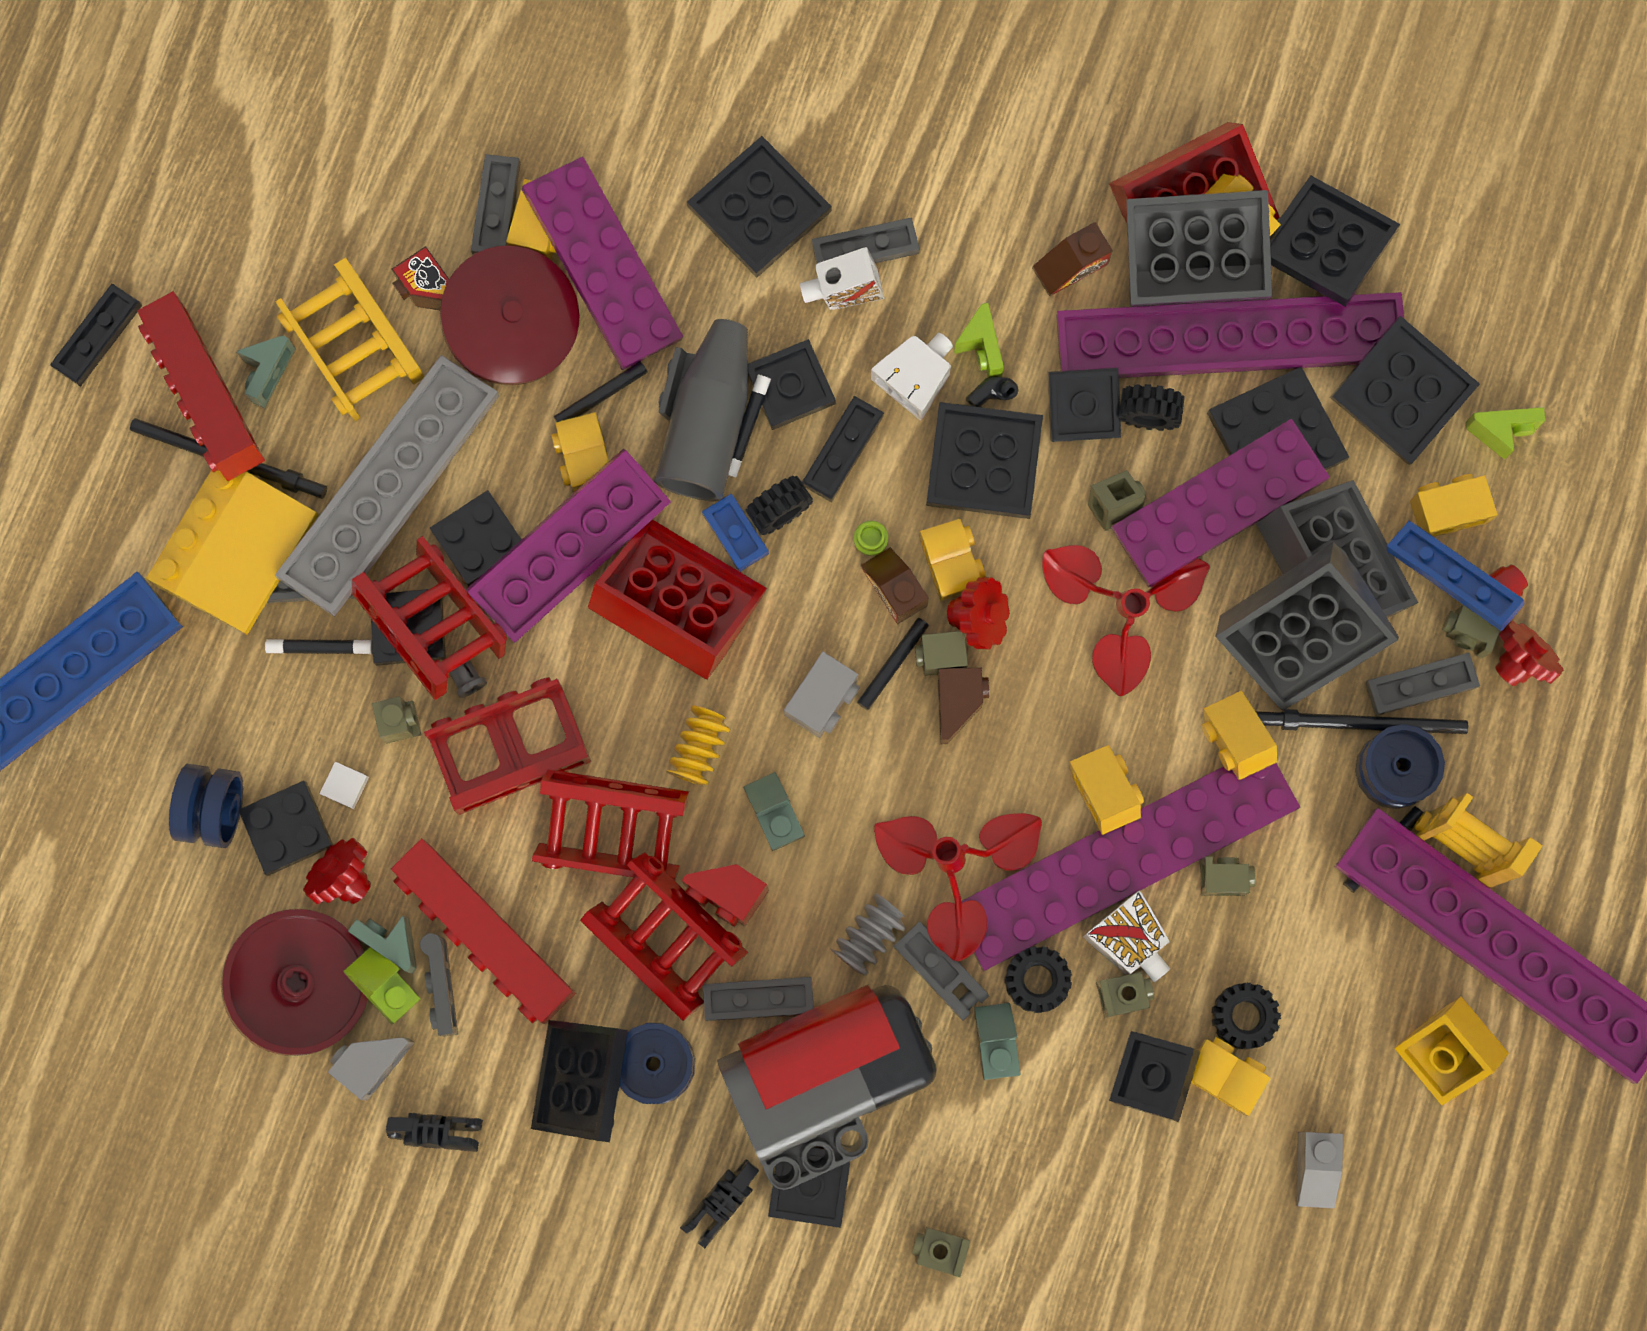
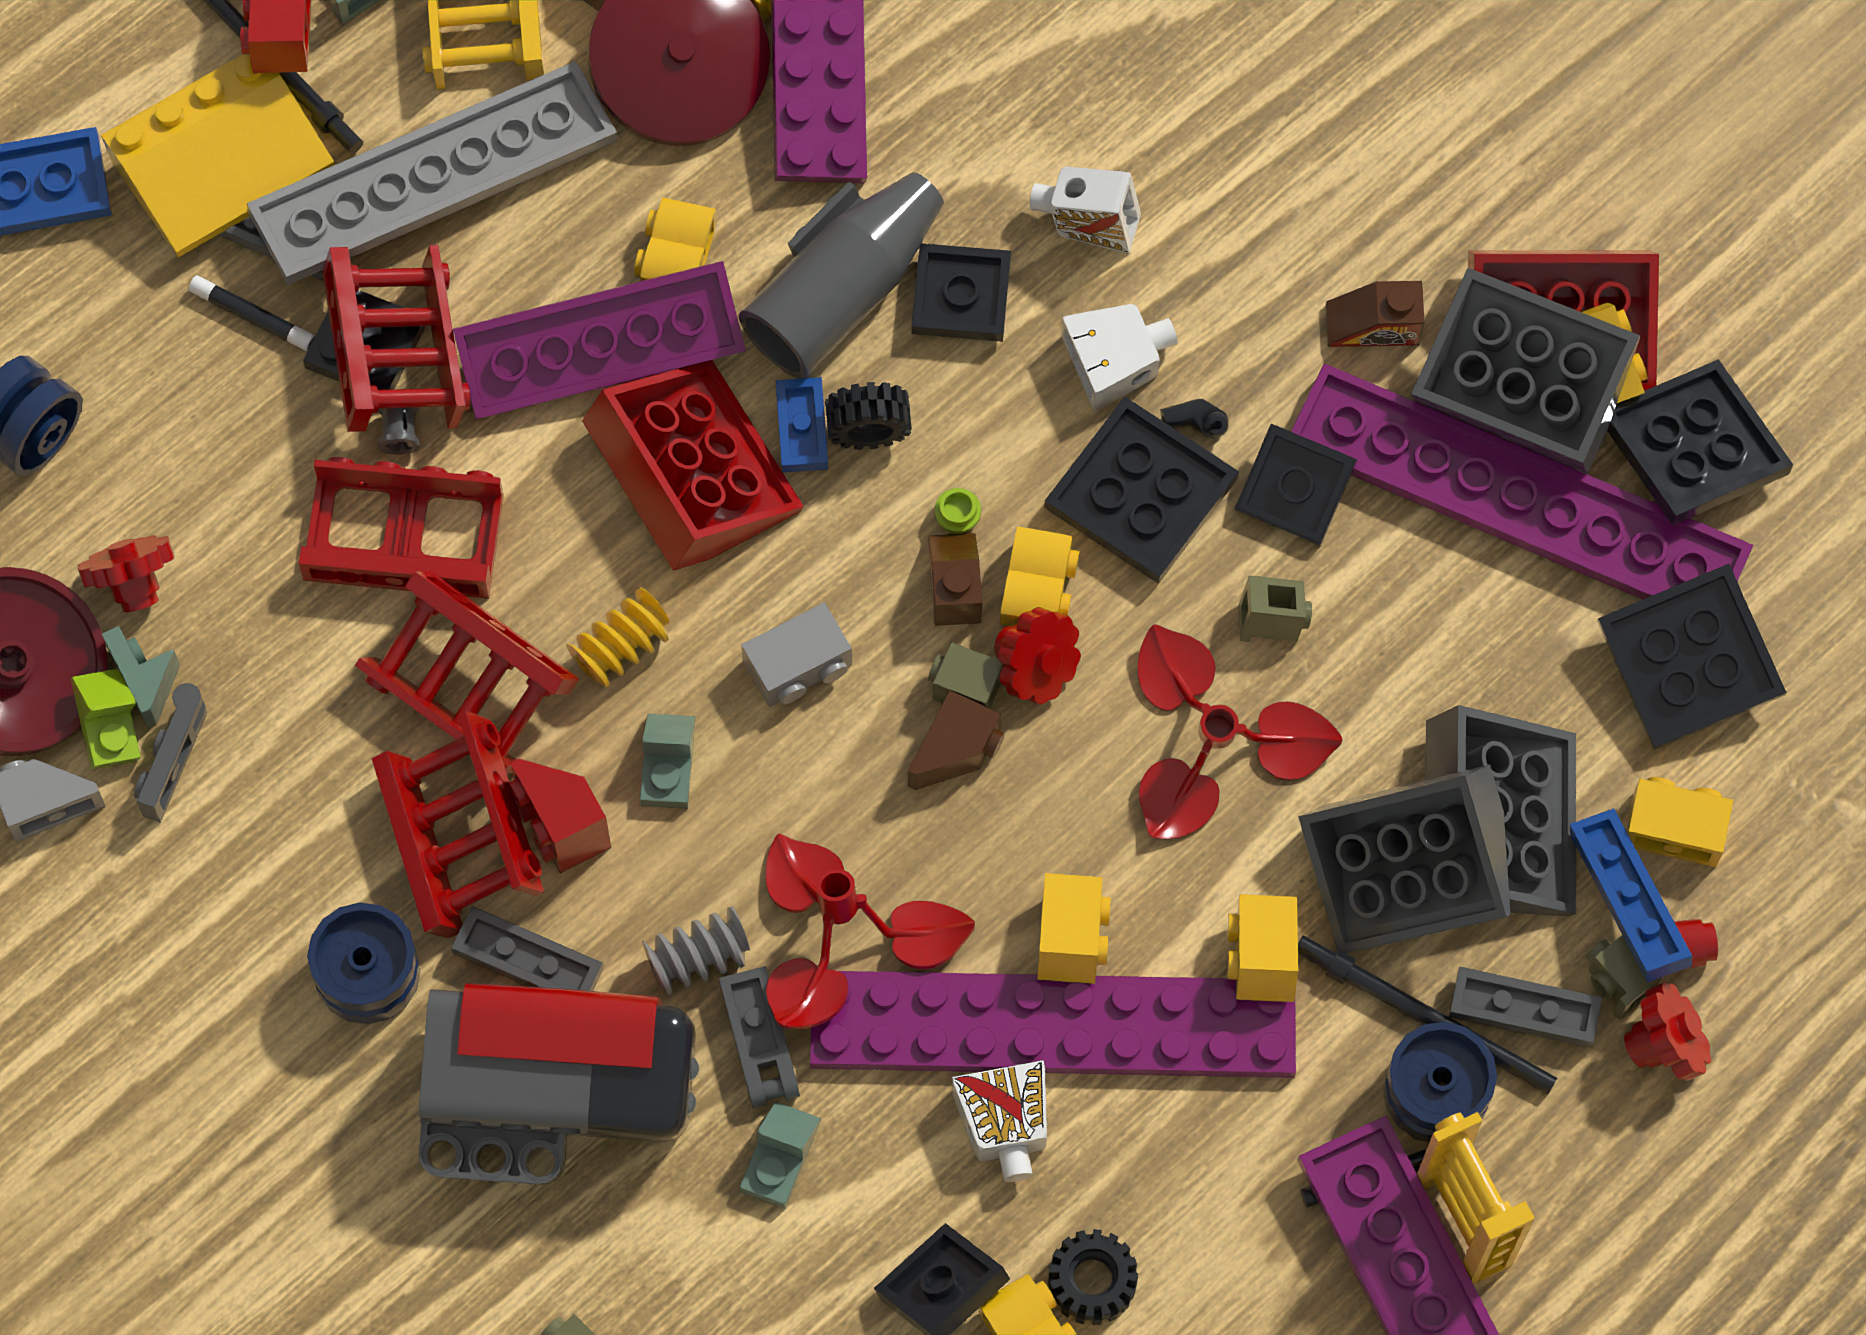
camera: 25 degrees right, 10 degrees down
(285, 828) = (98, 492): black plate -> none
(344, 785) = (191, 479): white tile -> none
(396, 719) = (291, 434): olive brick -> none
(434, 1131) = (71, 911): black hinge -> none
(476, 536) = (500, 277): black plate -> none
(482, 931) = (254, 719): red brick -> none
(579, 1080) = (267, 931): black plate -> none
(602, 393) = (741, 195): black bar -> none
(722, 1201) = (354, 1162): black hinge -> none
(748, 422) = (884, 310): black bar -> none
(759, 206) = (1039, 77): black plate -> none
(814, 1201) = (464, 1212): black plate -> none
(843, 449) = (982, 396): black tile -> none
(883, 241) = (1157, 184): dark grey plate -> none
(893, 663) = (900, 666): black bar -> none
(982, 335) = (1214, 347): lime slope -> none
(1060, 979) = (862, 1078): black tyre -> none
(1111, 994) = (946, 1187): olive brick -> none
(1151, 407) = (1372, 524): black tyre -> none
(1220, 502) = (1393, 673): magenta plate -> none
(1226, 877) = (1159, 1105): olive brick -> none
(1271, 405) = (1512, 637): black plate -> none
(1496, 427) = (1783, 754): lime slope -> none

